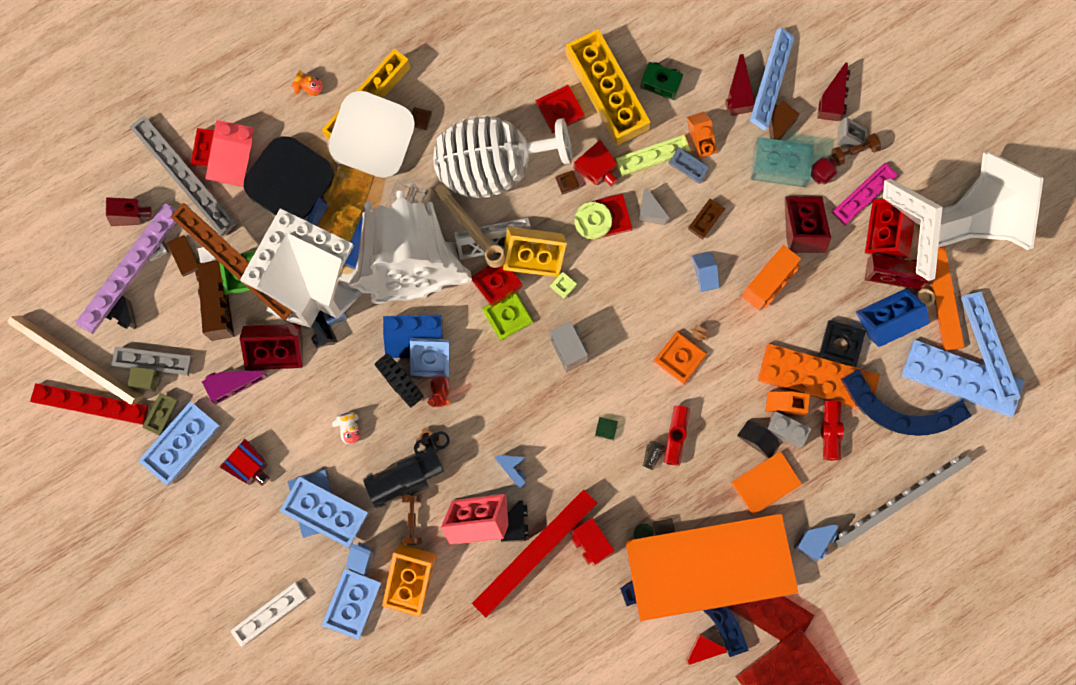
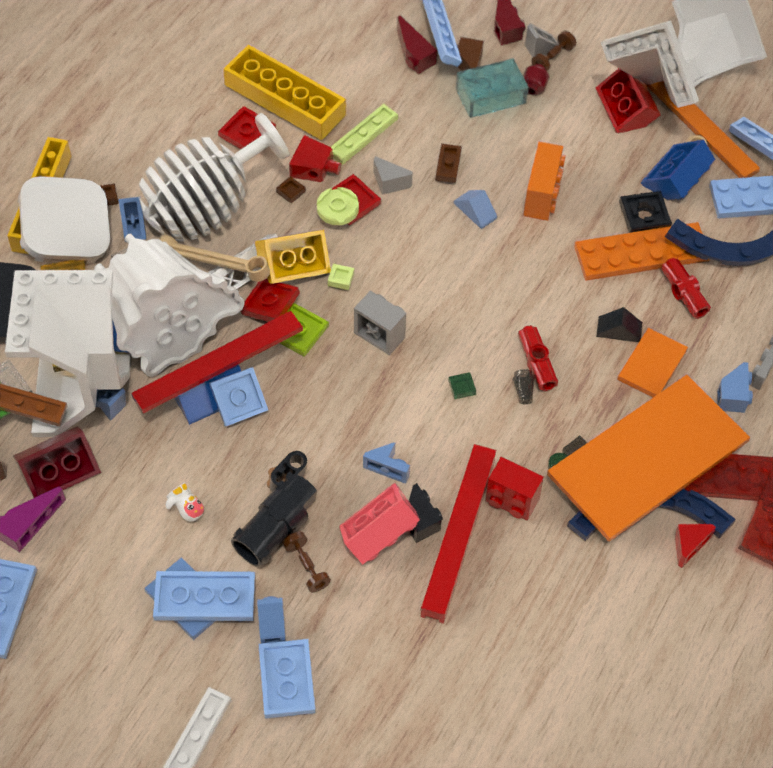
camera: 30 degrees left, 20 degrees down
(246, 464) = (87, 592): torso -> none
(324, 334) = (109, 429): black hinge -> none
(399, 380) = (219, 425): black wheel -> none
(409, 579) = (338, 623): light orange slope -> none
(424, 325) = (216, 362): none -> red tile
(425, 155) = (132, 217): none -> medium blue slope
(440, 389) = (268, 426): clear red animal -> none
(666, 89) = (334, 68): dark green brick -> none
(680, 357) = (497, 291): orange tile -> none
(689, 165) = (403, 126): sand blue plate -> none
(700, 333) = (503, 260): medium nougat plate -> none
(702, 134) = (400, 95): orange slope -> none
(788, 403) = (629, 280): orange slope -> none
(788, 430) = (645, 303): light grey brick -> none
(806, 224) = (548, 126): dark red slope -> none
(864, 194) = (584, 85): dark pink tile -> none
(894, 272) = (658, 131): dark red slope -> none

